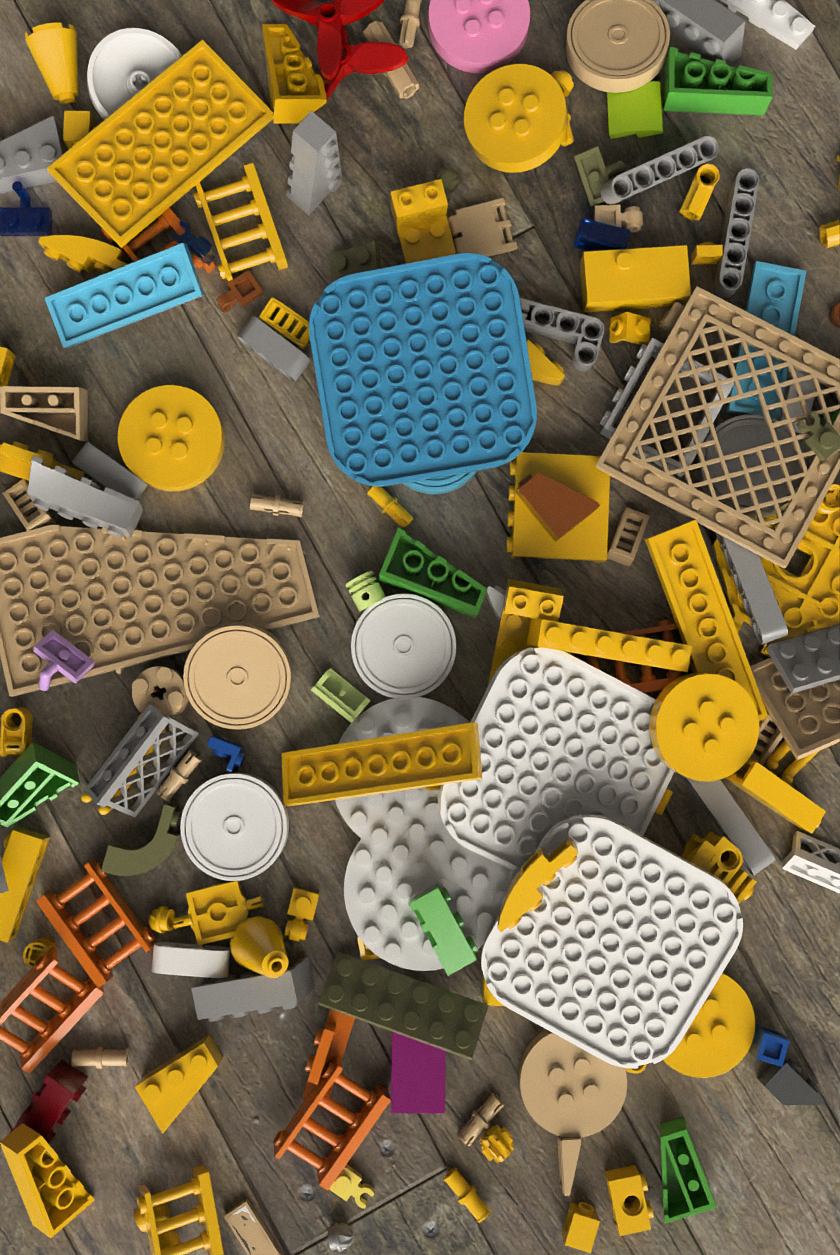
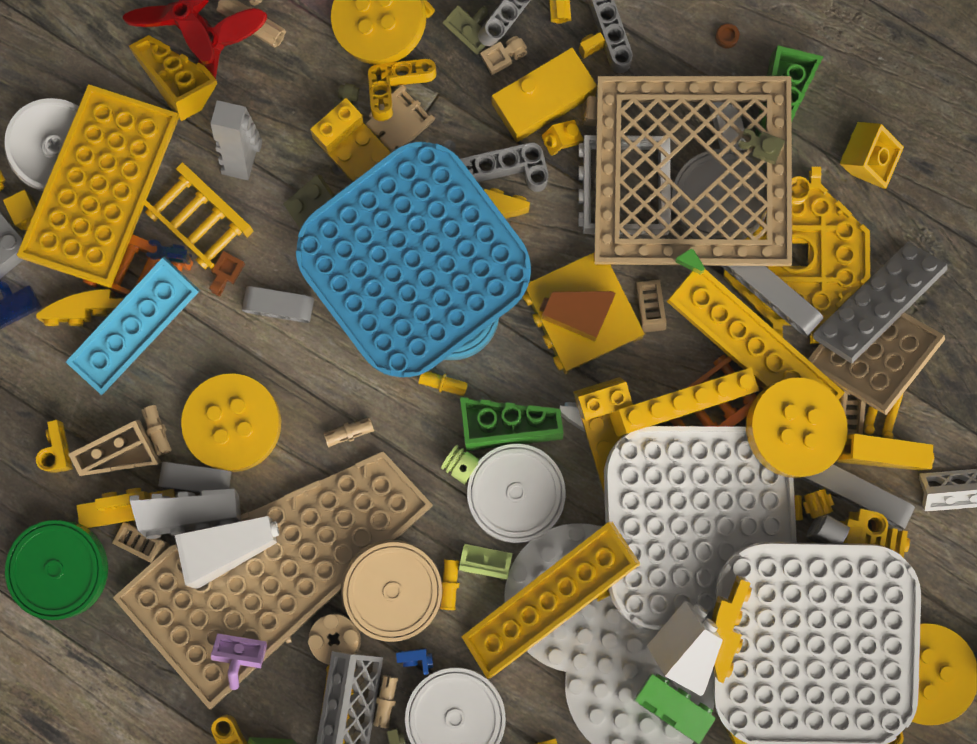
camera: 20 degrees left, 5 degrees down
(91, 552) = (218, 549): none -> white slope
(97, 408) = (156, 430): none -> tan pin
(268, 312) = (269, 268): yellow slope -> none
(296, 699) = (449, 584): none -> yellow pin
(485, 880) = (687, 647): none -> white slope
(530, 197) = (390, 78): none -> yellow beam
(600, 236) = (498, 75): clear blue slope -> none
(679, 840) = (827, 530): none -> light grey beam
(685, 808) = (818, 503): none -> yellow gear
(690, 513) = (691, 261): none -> bright green slope
(775, 298) = (668, 54): medium azure plate -> none

